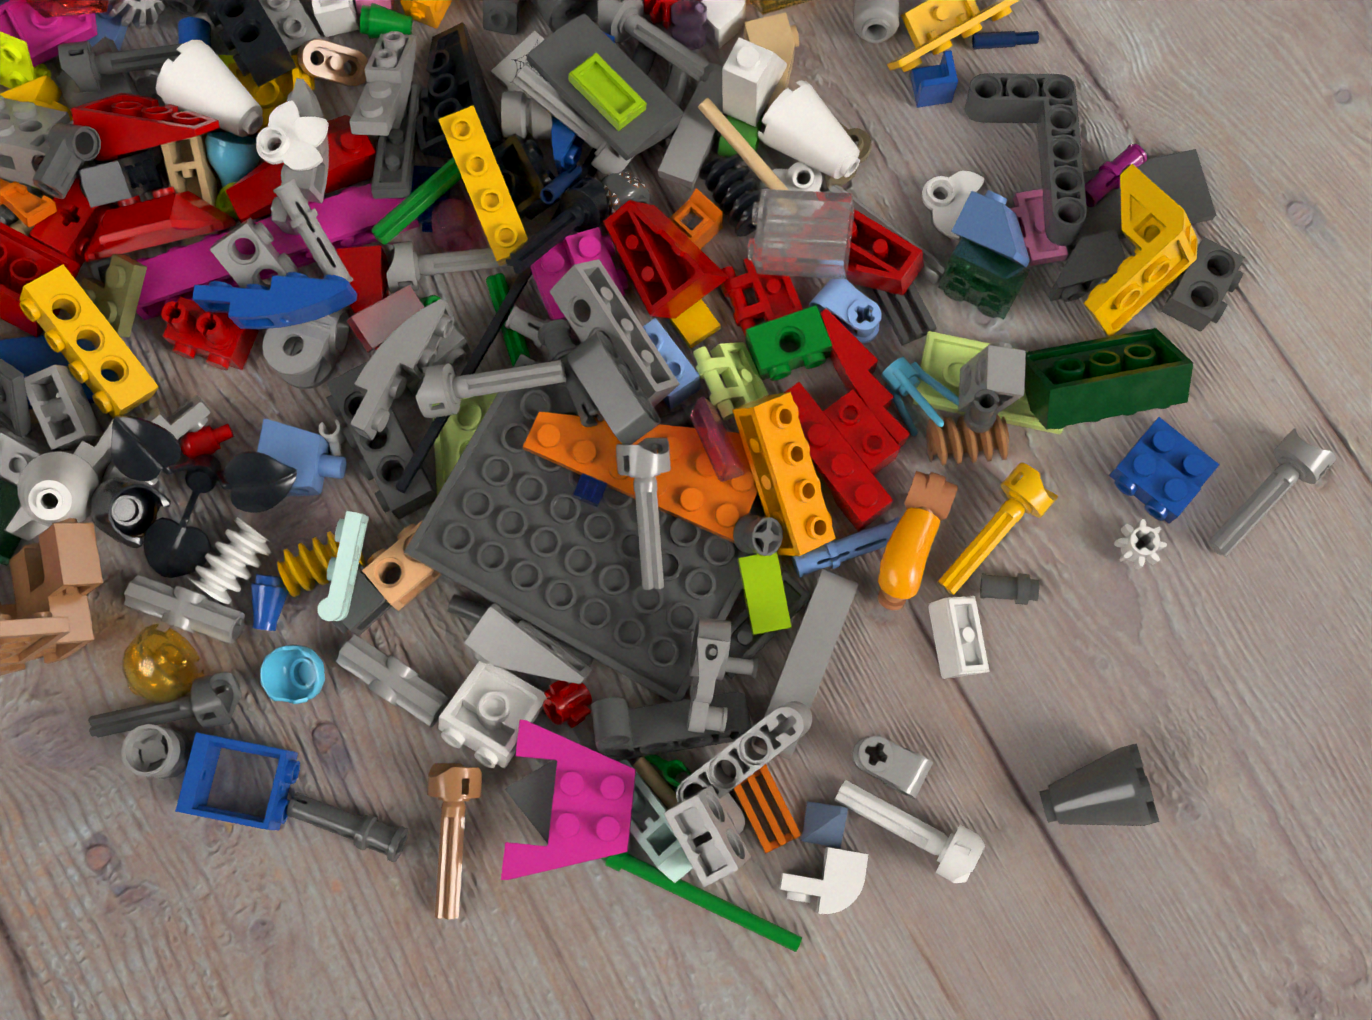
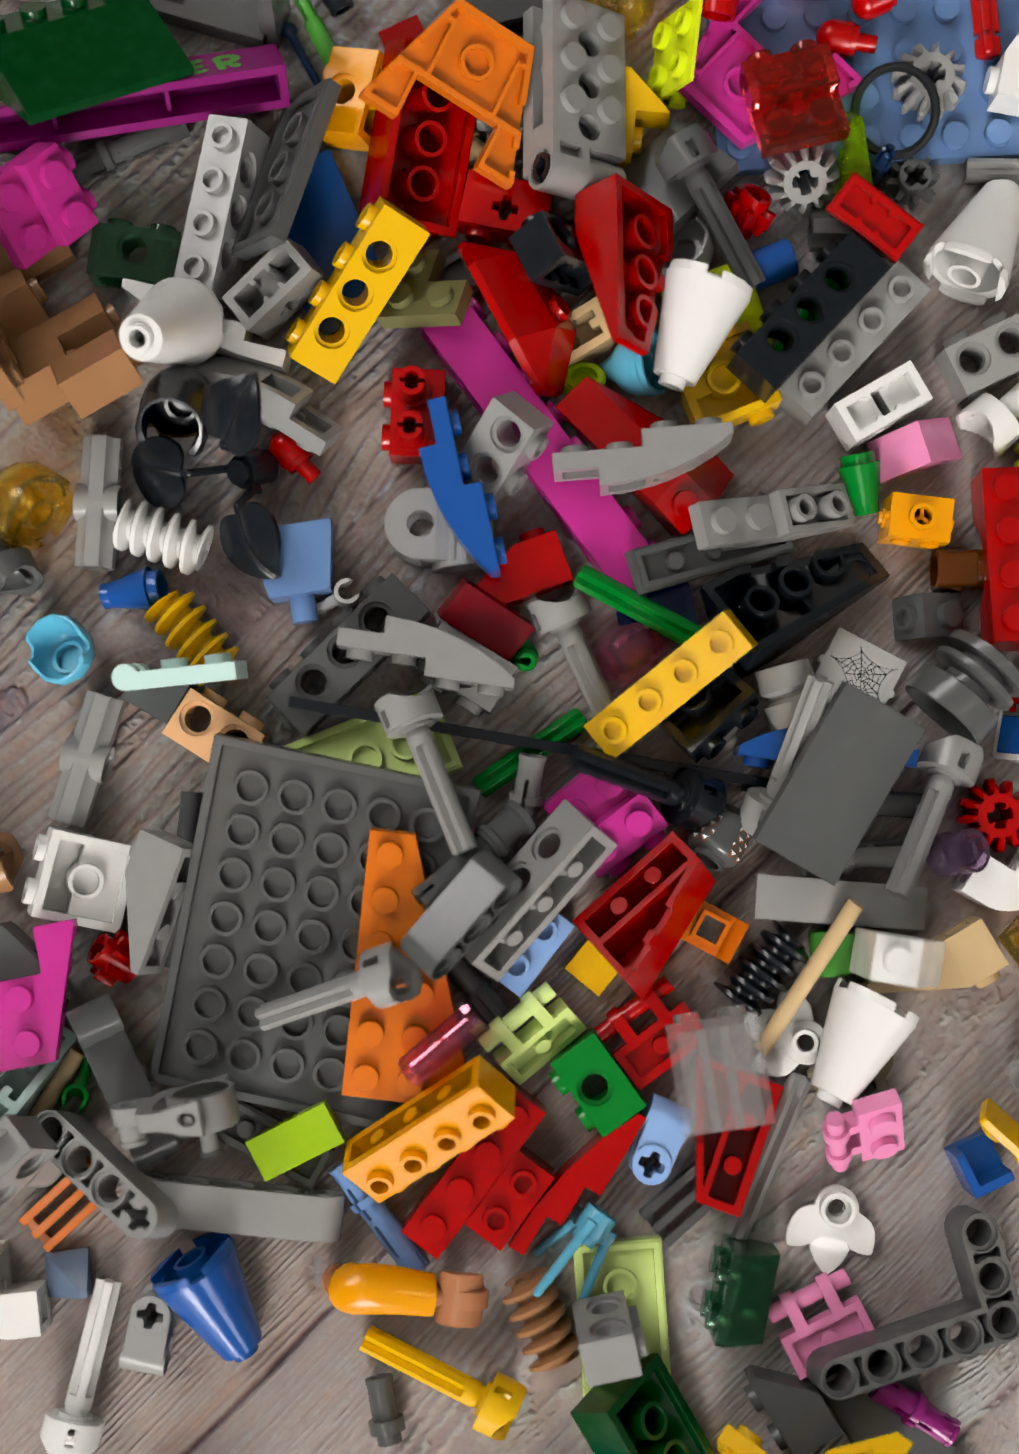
camera: 65 degrees right, 10 degrees up
(68, 151) = (566, 192): dark grey piece -> none
(144, 37) = (750, 209): none -> red gear
(297, 137) = (658, 451): white plate -> none
(310, 230) = (581, 469): light grey pin -> none
(332, 61) = (787, 439): medium nougat plate -> none
(560, 184) = (707, 763): dark blue pin -> none
(589, 490) = (346, 916): clear blue piece -> none
(607, 91) = (826, 792): lime tile -> none
(758, 535) = (353, 1118): dark grey wheel -> none
(874, 699) = (211, 1295): none -> blue cone
(884, 148) = (870, 1130): none -> bright pink plate
(958, 637) = (314, 1365): white slope -> none
(982, 411) = (559, 1339): dark grey animal -> none
(992, 226) = (802, 1287): medium blue slope -> none

